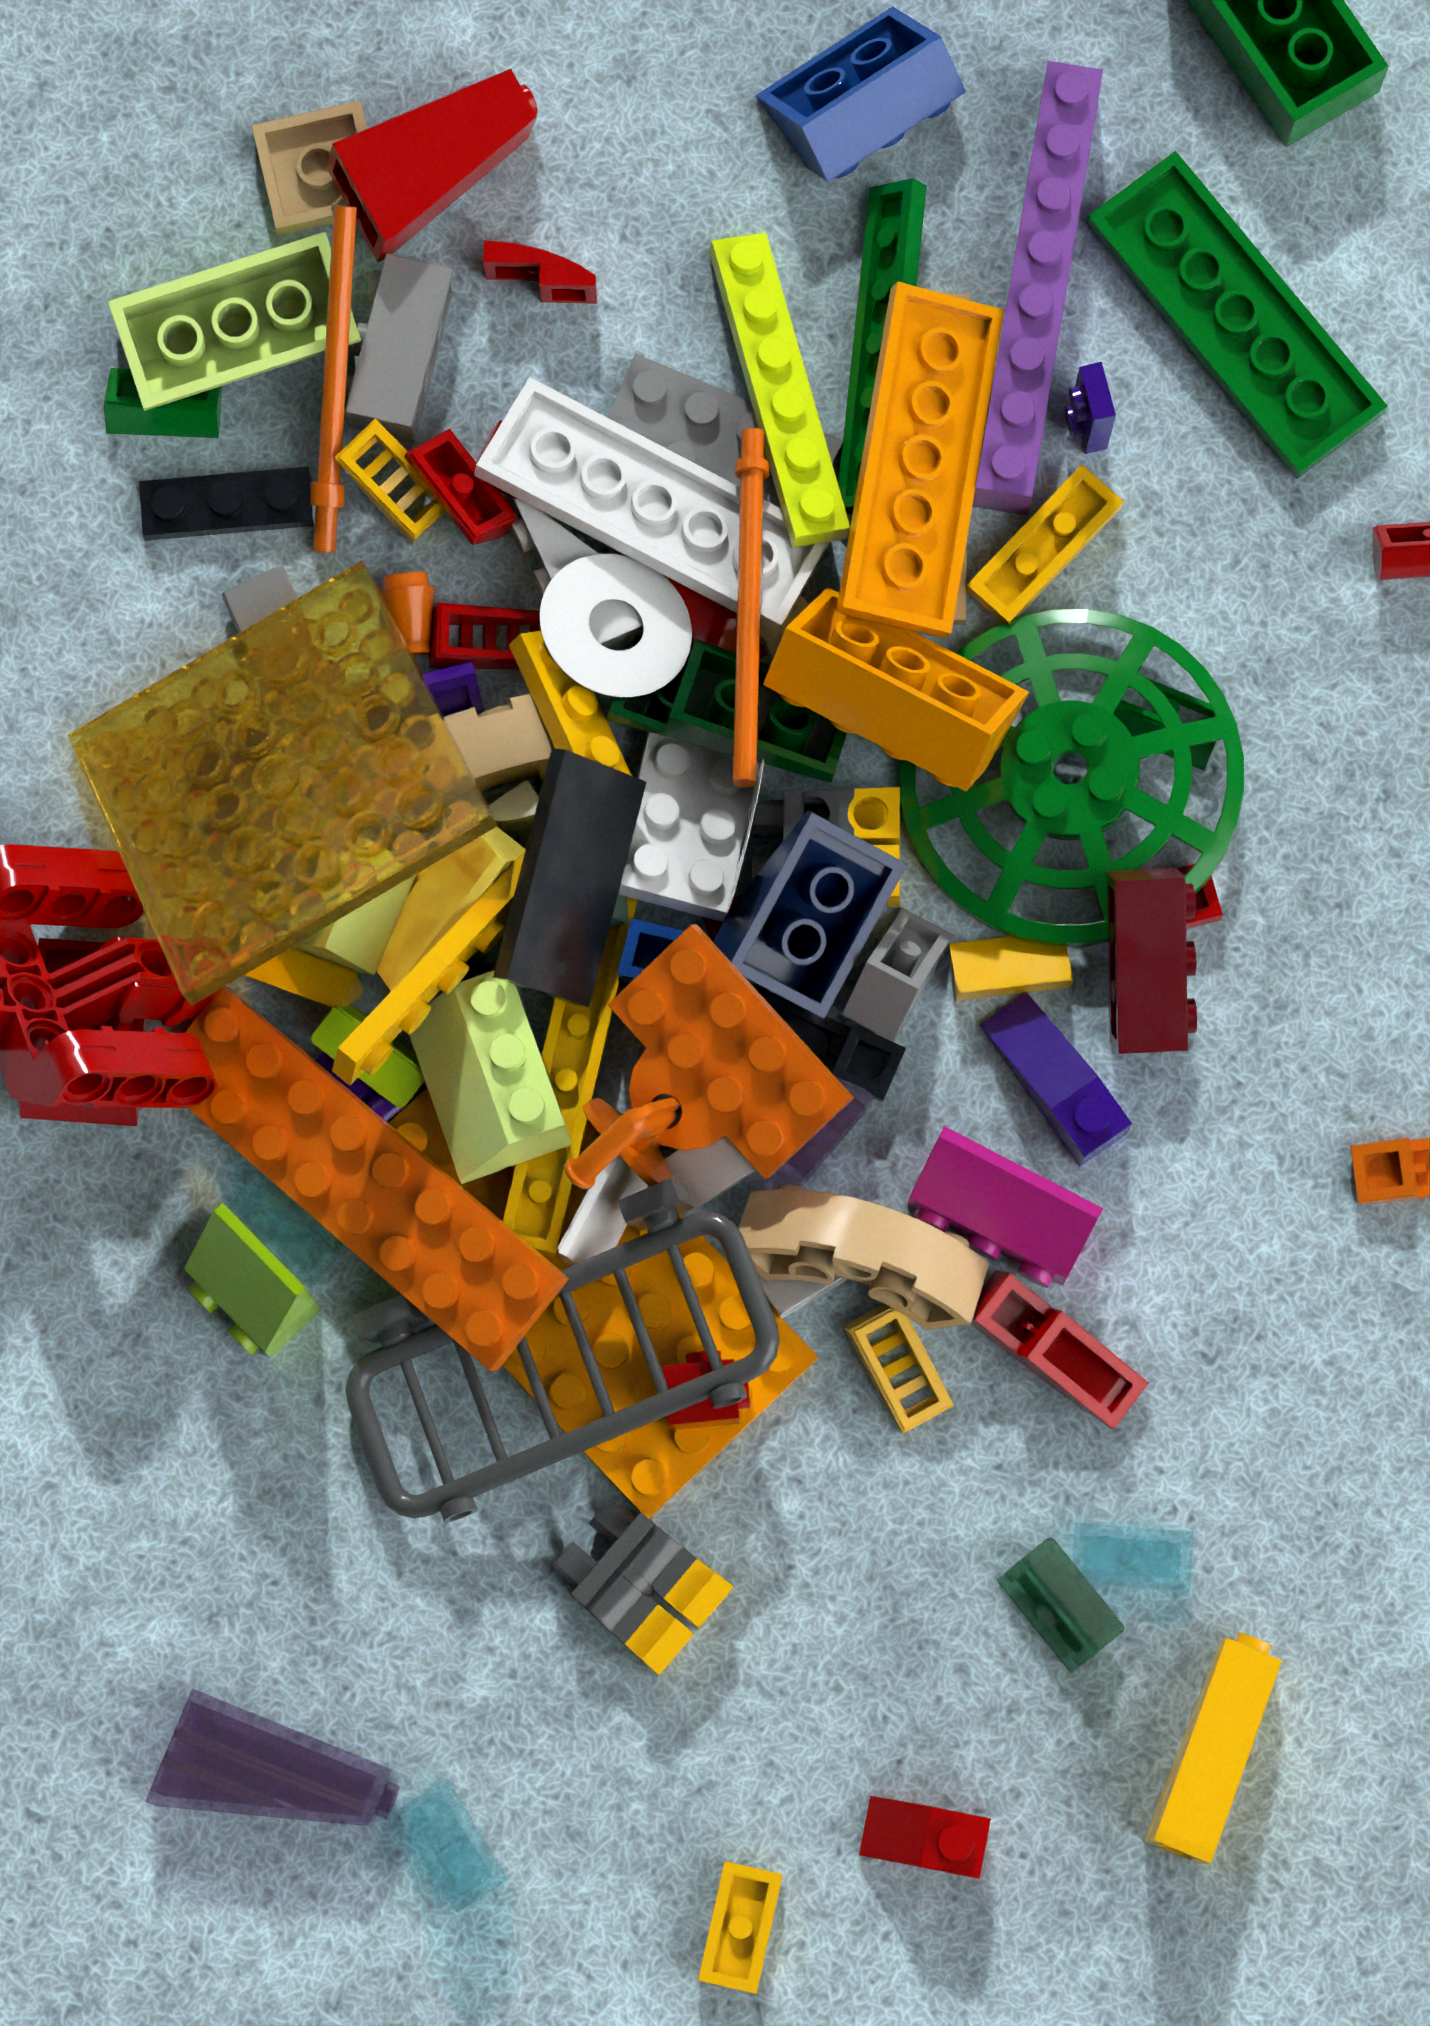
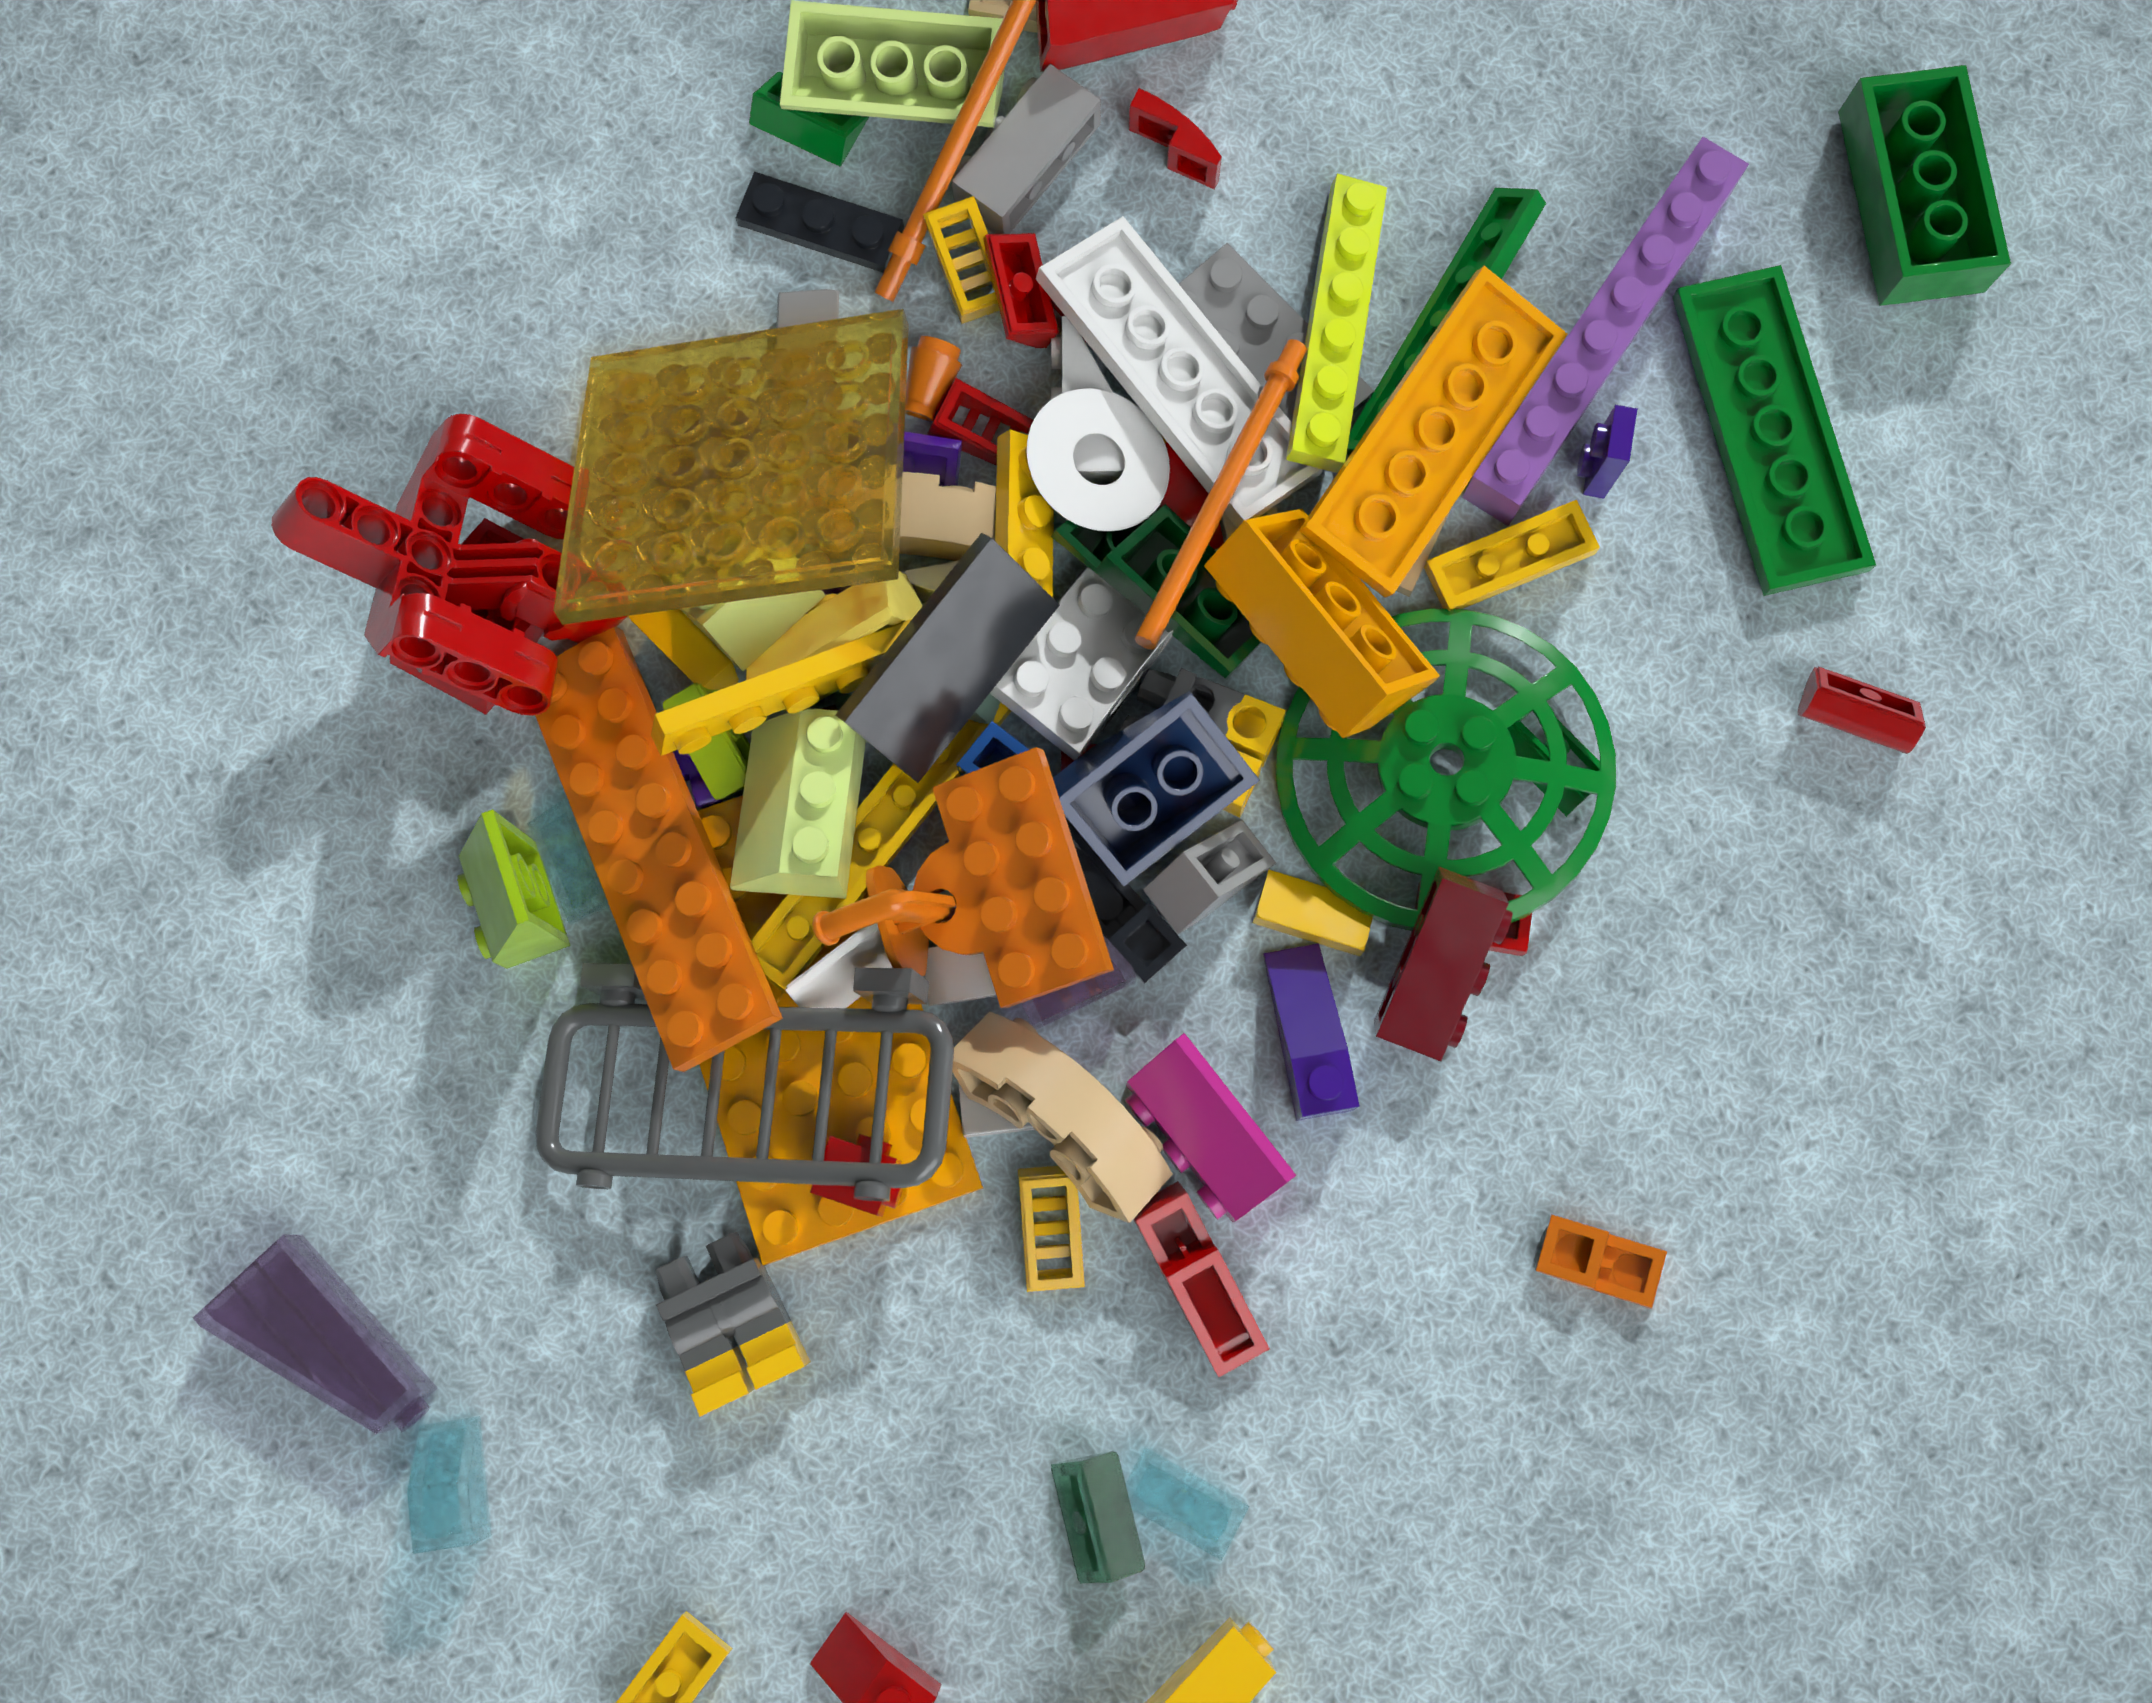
camera: 25 degrees right, 0 degrees up
(863, 93) = (1527, 106): blue slope -> none

